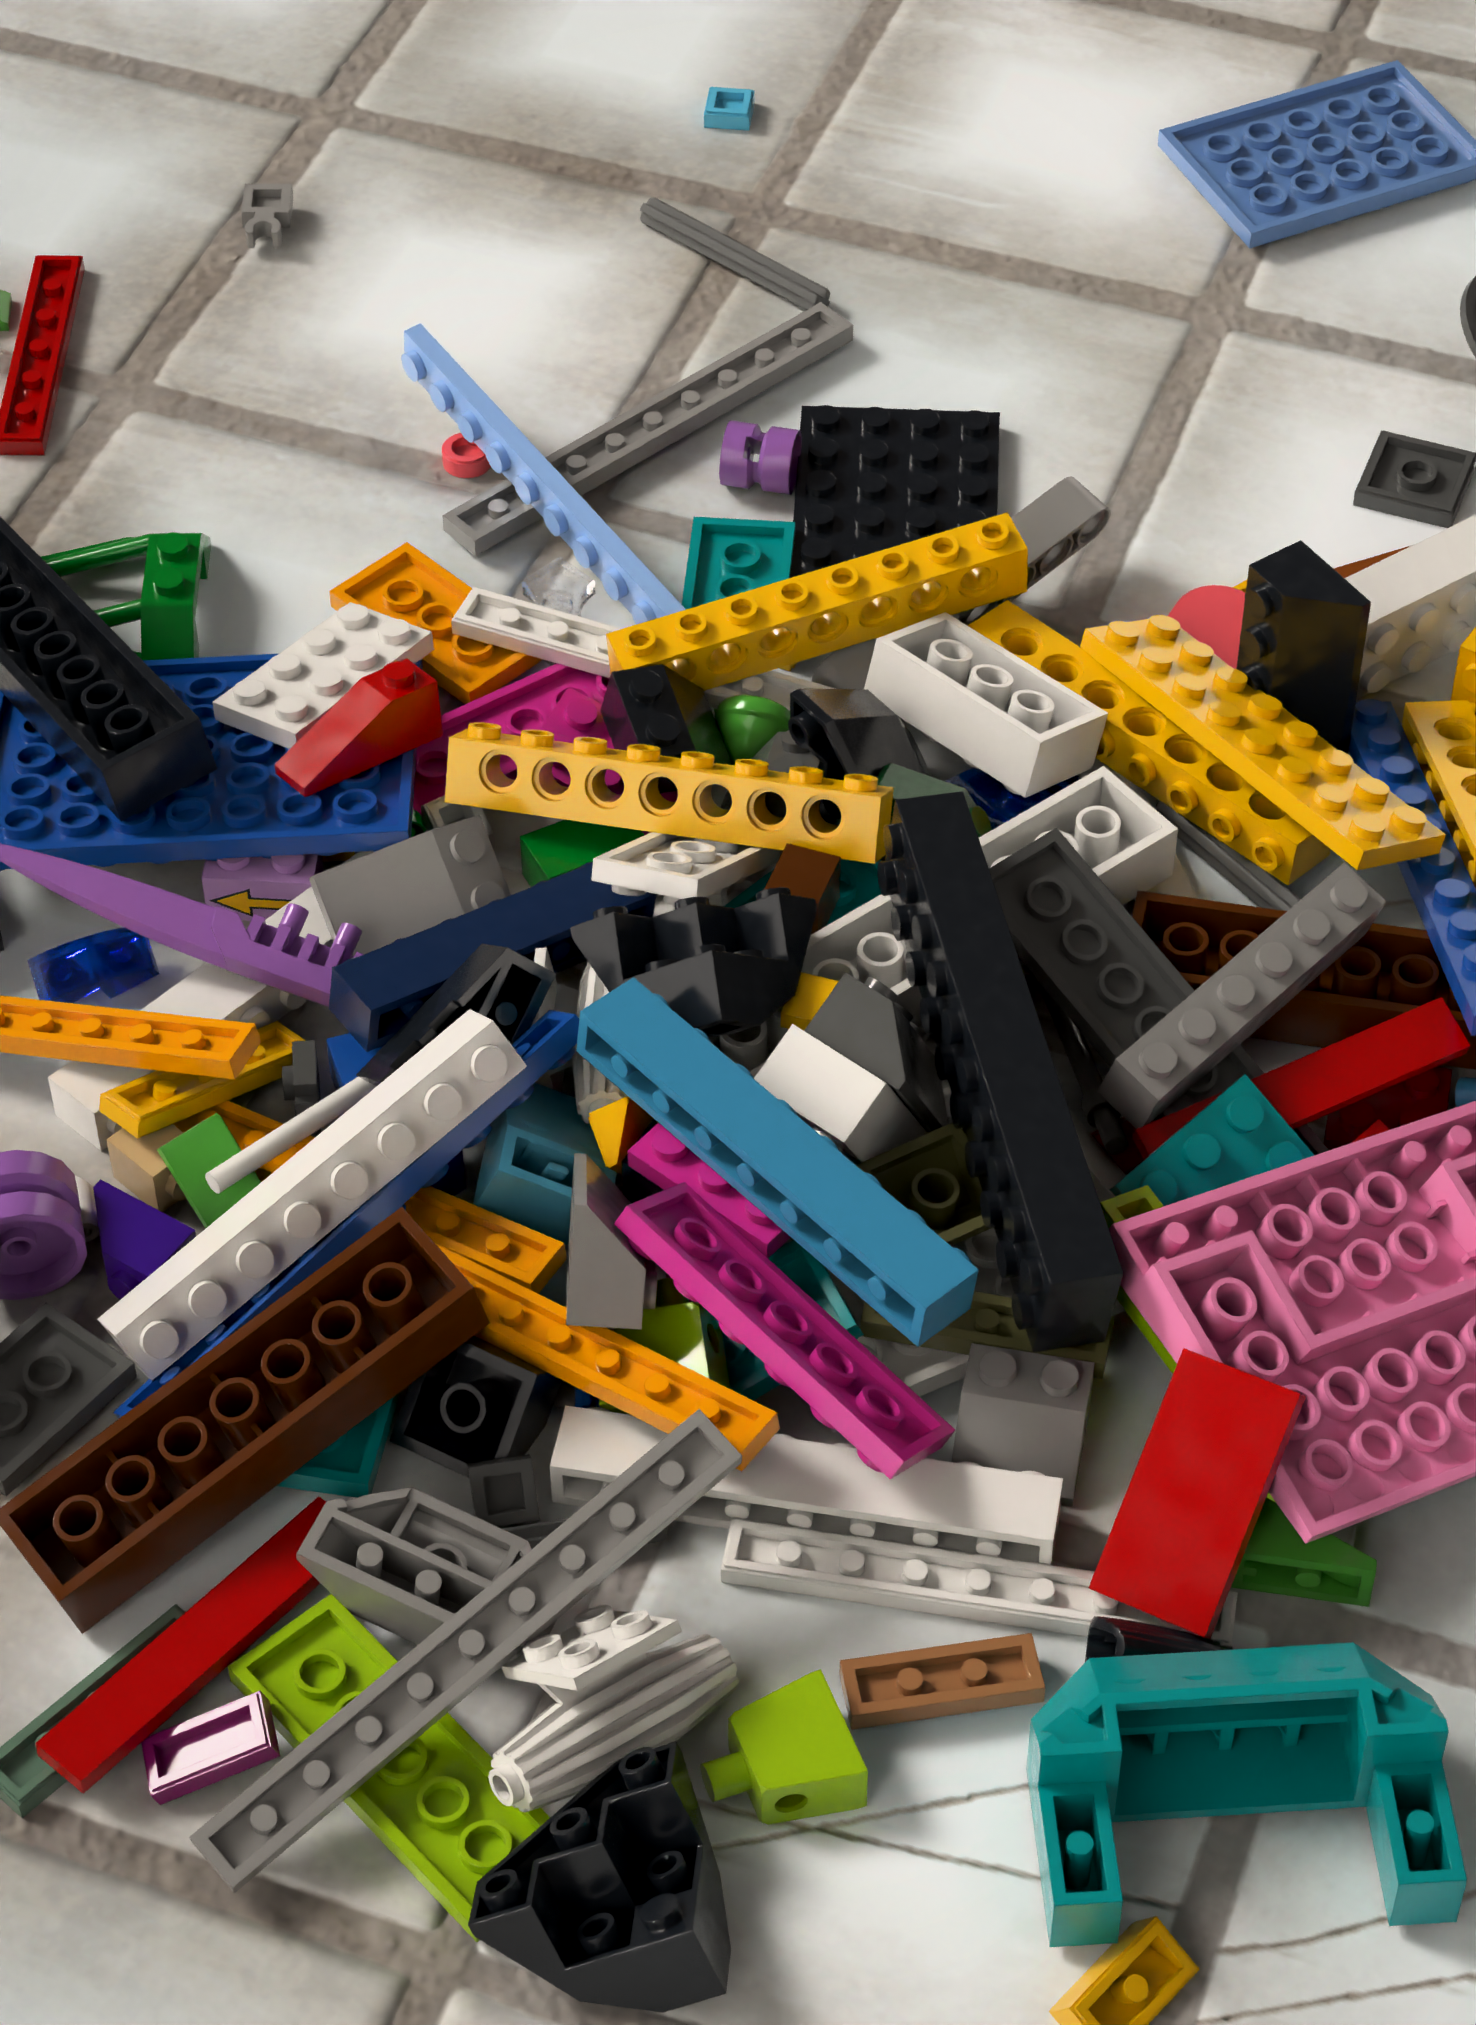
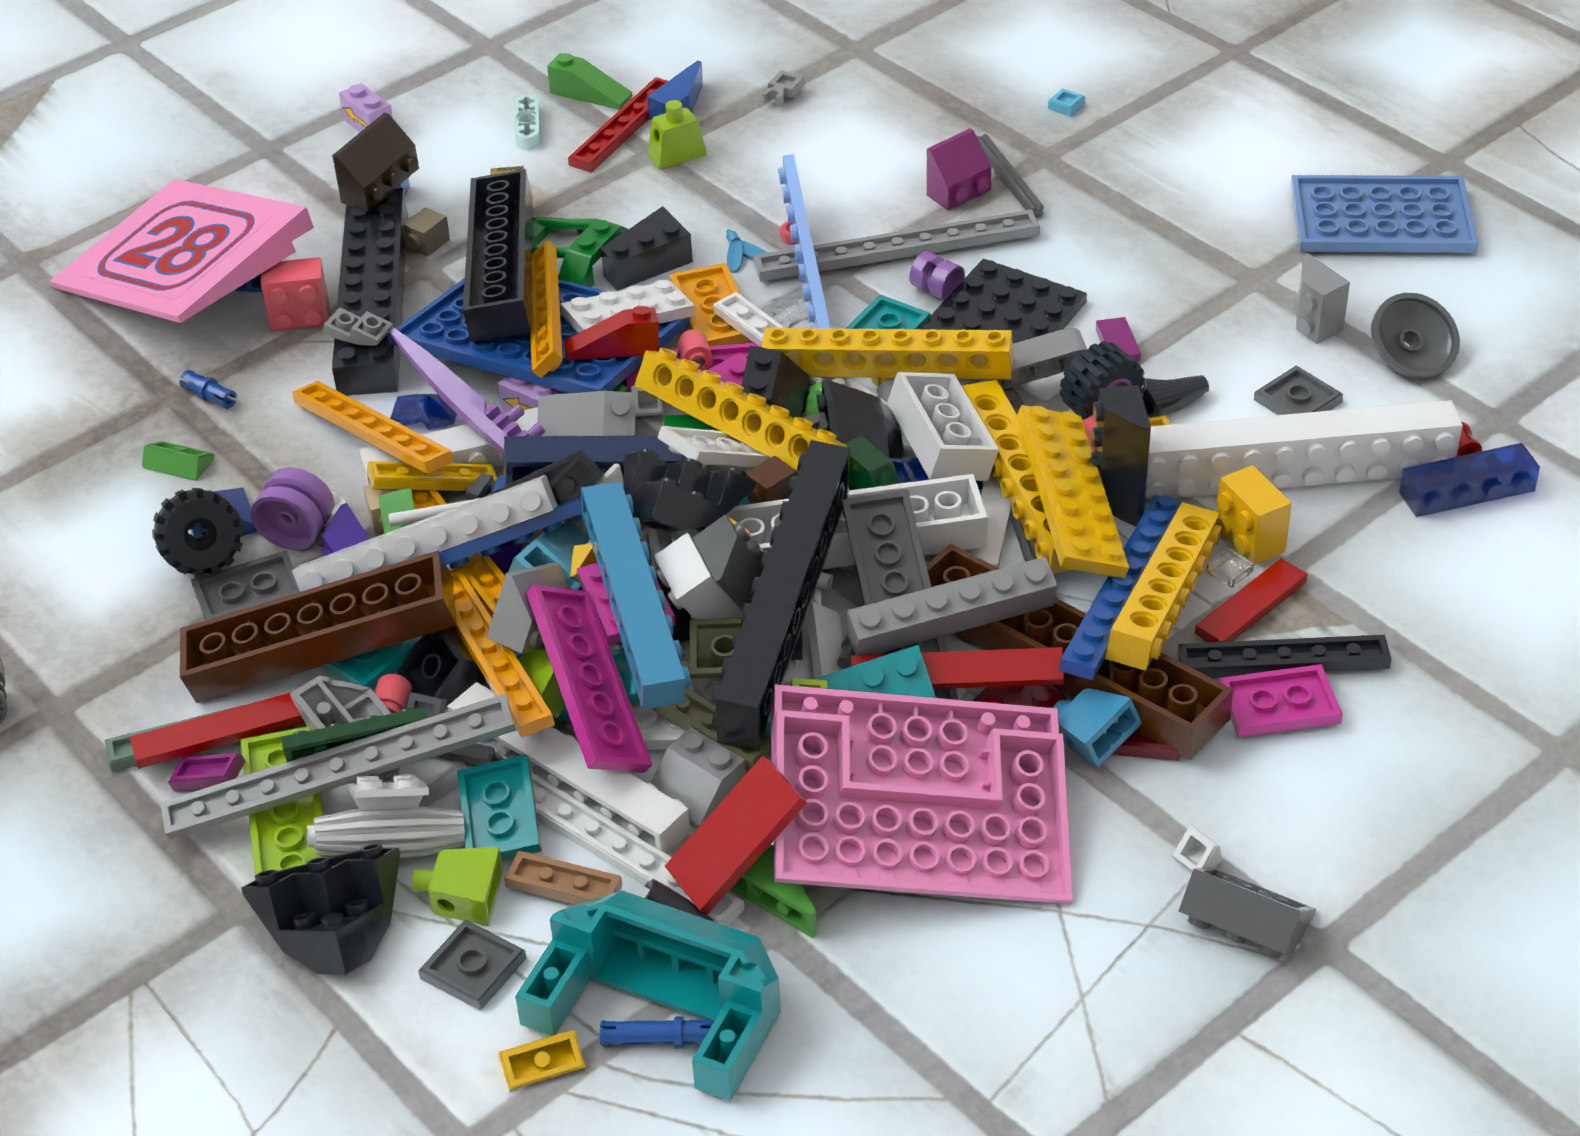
camera: 30 degrees right, 5 degrees down
(104, 286) = (683, 87): none -> blue slope
(163, 351) = (675, 137): none -> lime torso
(242, 758) = (545, 312): none -> light orange plate
(262, 561) = (646, 250): none -> black wedge
(402, 512) = (738, 249): none -> dark azure piece
(427, 1471) = (393, 692): none -> coral brick
(446, 1592) = (310, 742): none -> dark green plate
(482, 700) = (695, 347): none -> coral brick
(668, 273) = (957, 170): none -> magenta slope
(759, 1600) = (500, 806): none -> teal plate
(897, 1882) = (472, 964): none -> dark grey tile
(1099, 473) = (1118, 332): none -> magenta tile
(1156, 551) = (1097, 368): none -> black wheel
(1241, 538) = (1169, 395): none -> black piece
(1299, 1850) = (654, 1032): none -> blue pin
(1352, 316) = (1321, 300): none -> light grey slope

